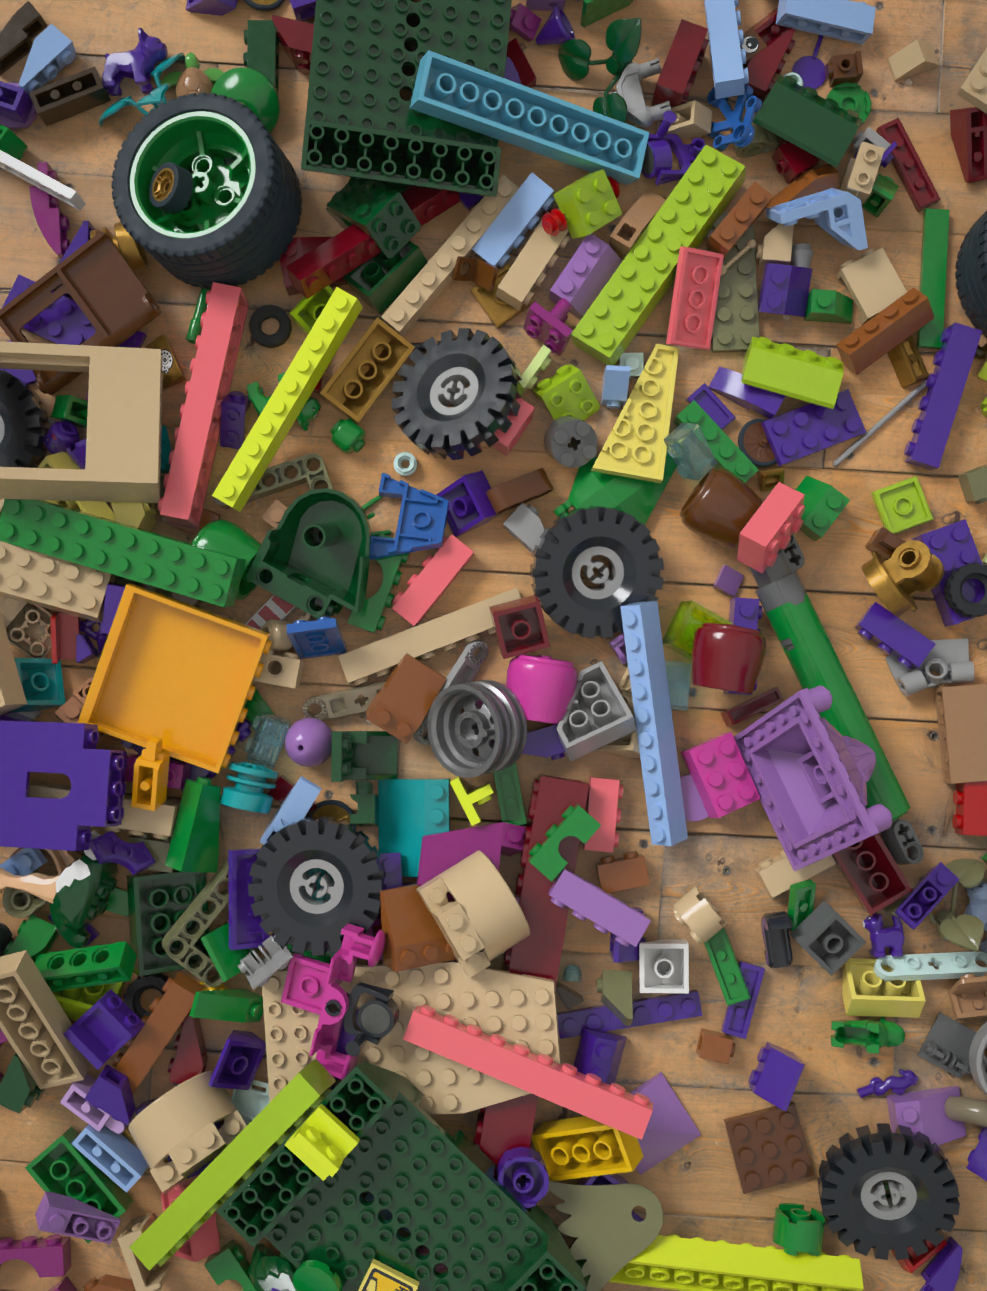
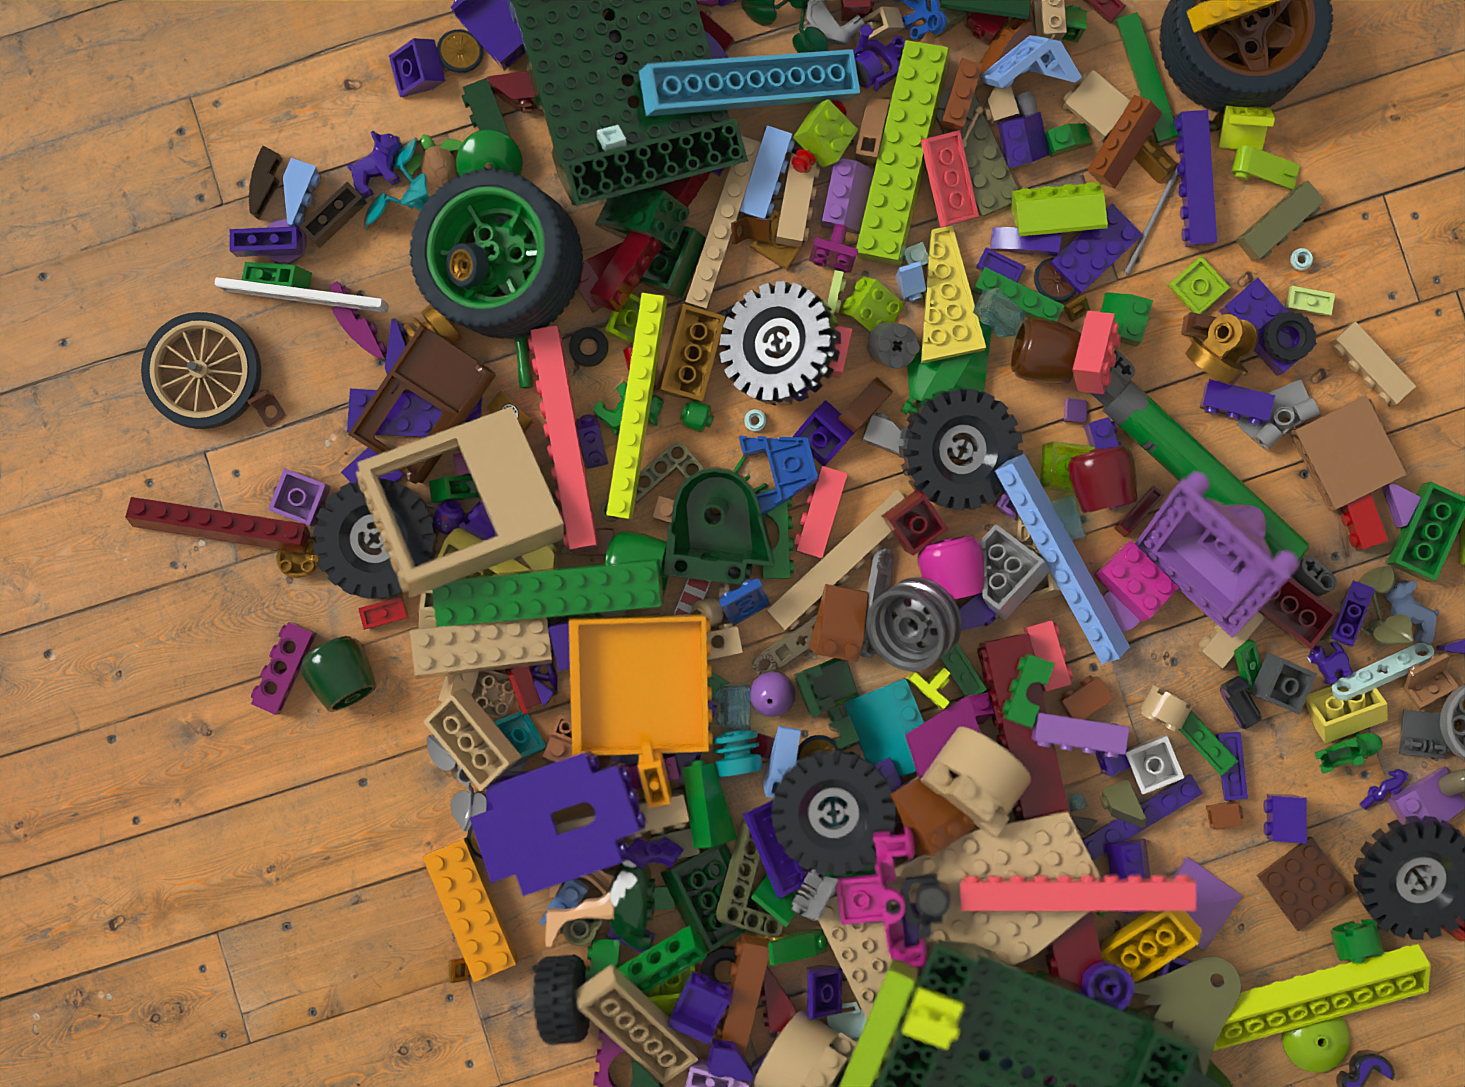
camera: 25 degrees left, 0 degrees up
(366, 116) = (611, 138): none -> light aqua plate

